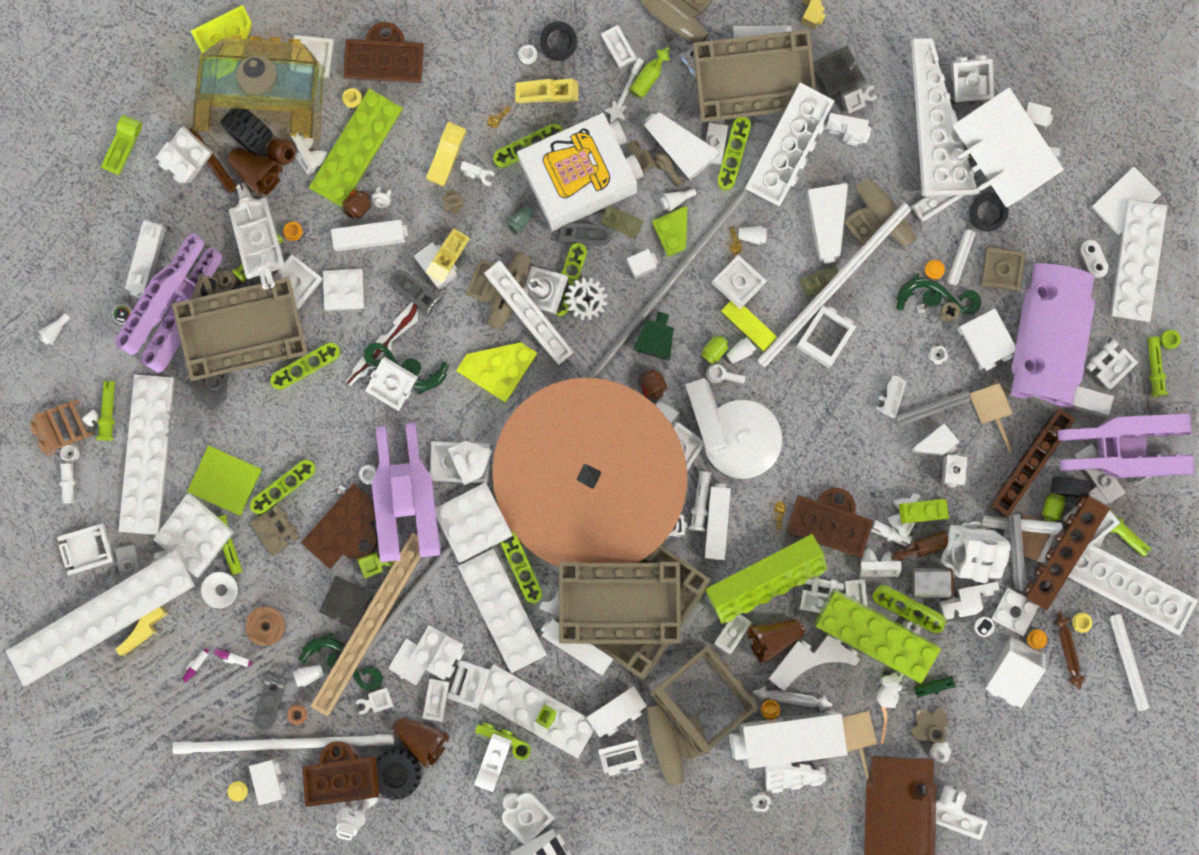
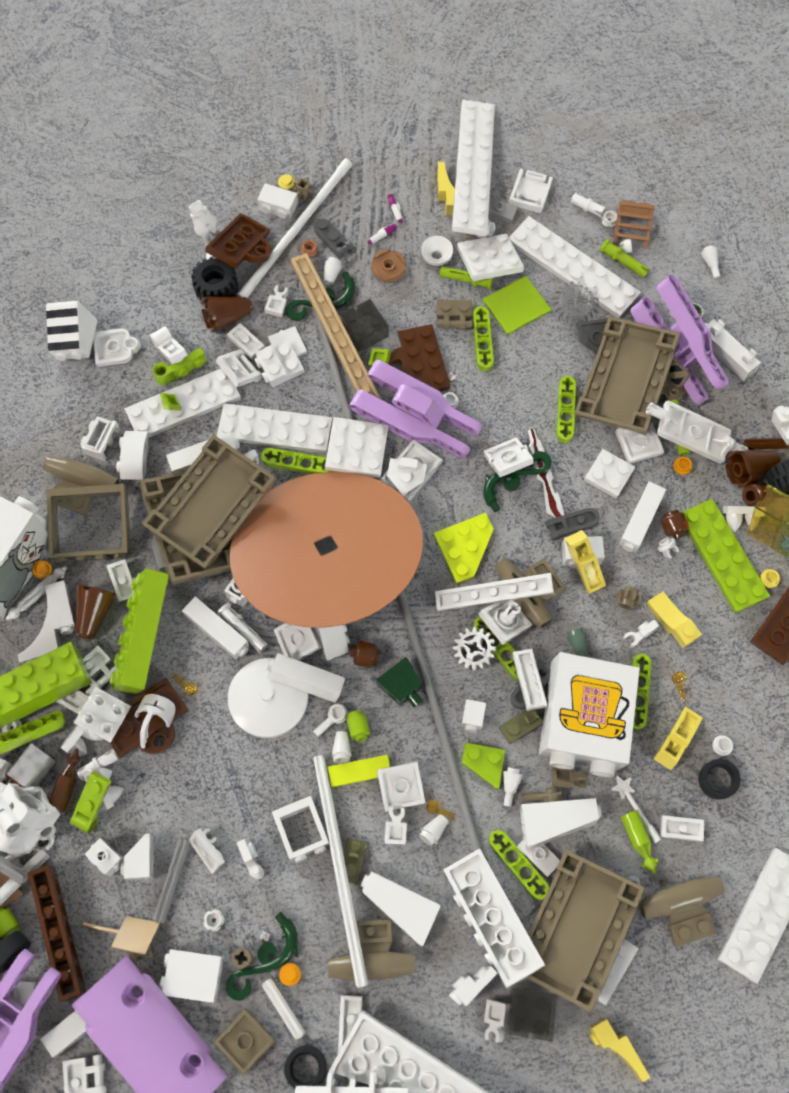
camera: 125 degrees right, 15 degrees down
(230, 767) = (303, 188): none -> dark tan gear
(583, 236) = (529, 679): none -> white plate
(773, 263) = (395, 829): none -> white plate
(810, 513) = (145, 705): none -> white helmet
(853, 556) = (102, 714): none -> white plate
(874, 360) = (249, 854): none -> white plate

